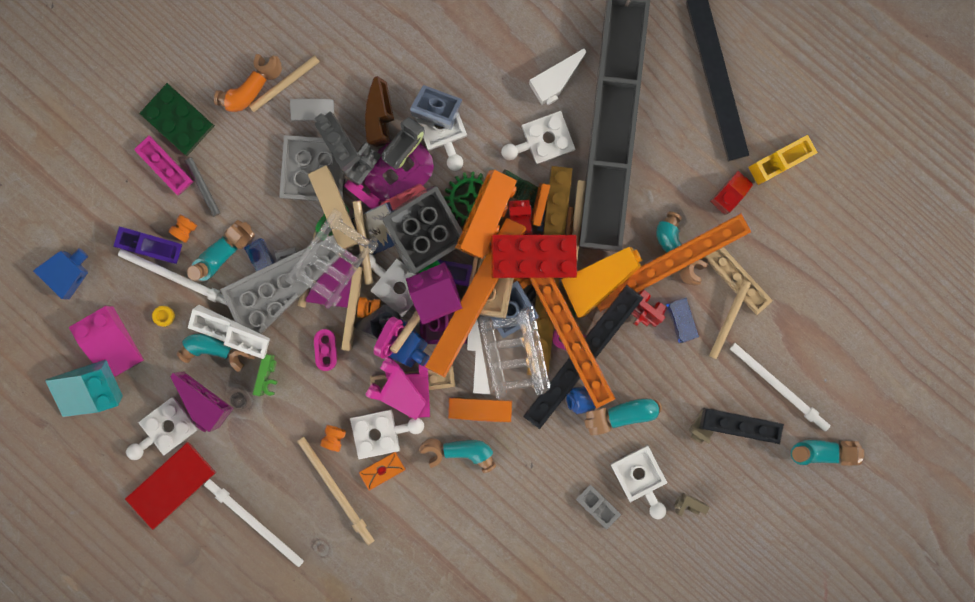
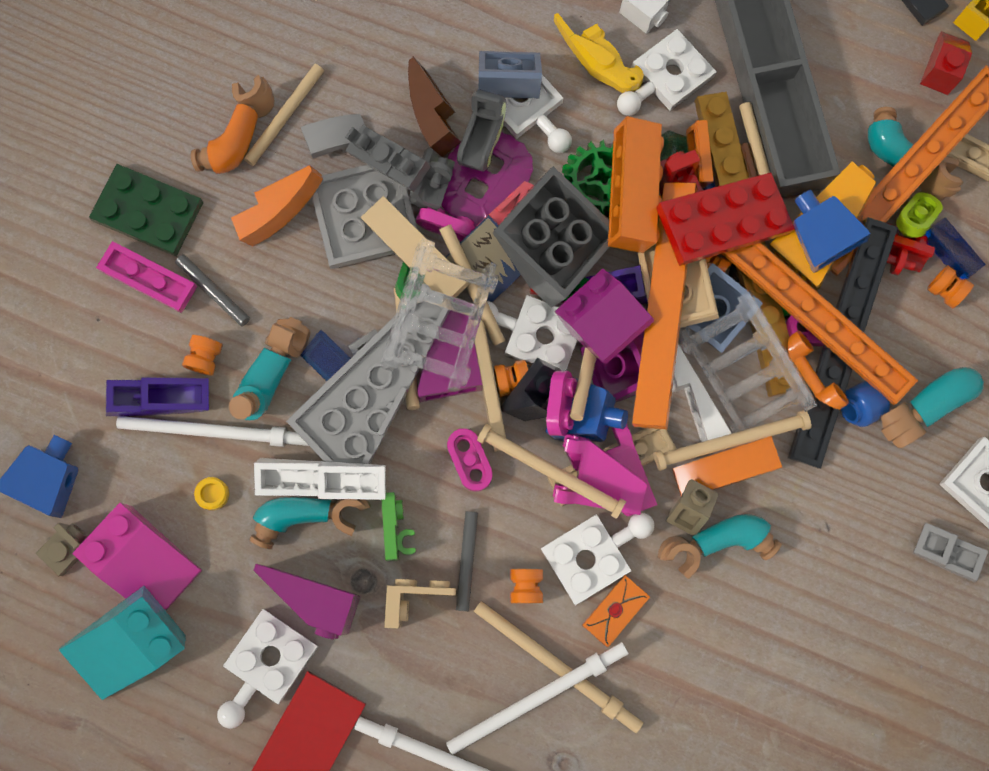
camera: 30 degrees left, 10 degrees down
(64, 318) = (59, 548): none -> dark tan bracket
(253, 418) = (398, 609): none -> tan bracket
(257, 148) = (276, 206): none -> orange slope
(303, 410) = (466, 561): none -> dark grey bar
(355, 498) = (595, 664): none -> white bar
(369, 376) = (551, 471): none -> tan bar
(450, 426) = (693, 507): none -> dark tan bracket
(486, 395) = (801, 421): none -> tan bar
(502, 115) = (600, 57): none -> yellow animal
(555, 350) = (800, 347): none -> orange bar
(593, 286) = (826, 230): none -> blue torso
(665, 293) = (919, 215): none -> lime plate
(669, 349) = (950, 287): none -> orange wheel

